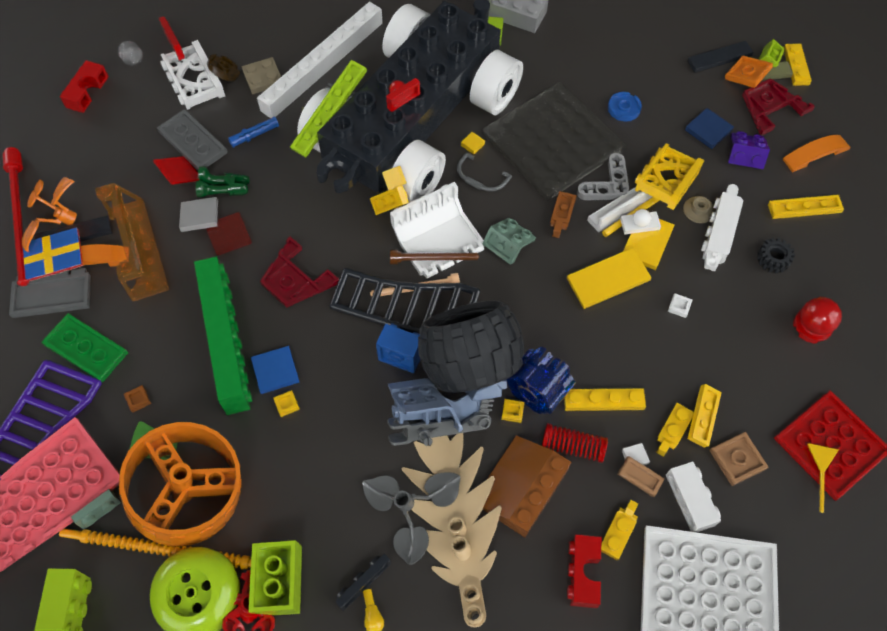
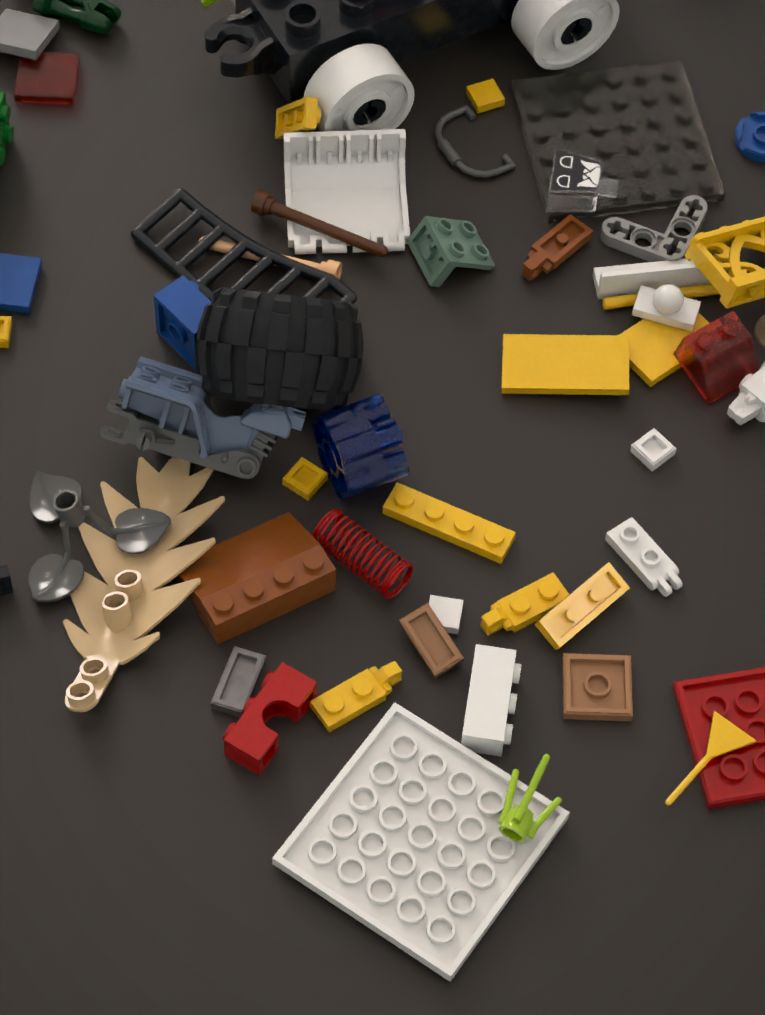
camera: 25 degrees right, 5 degrees down
(288, 282) = (92, 175): dark red wing -> none
(394, 177) = (313, 83): yellow tile -> none
(552, 555) = (238, 681): none -> flat silver tile
(555, 172) = (577, 183): none -> torso
(683, 238) = (718, 356): none -> clear red slope
(715, 370) = (644, 557): none -> white hinge
(760, 566) = (518, 821): none -> lime plant

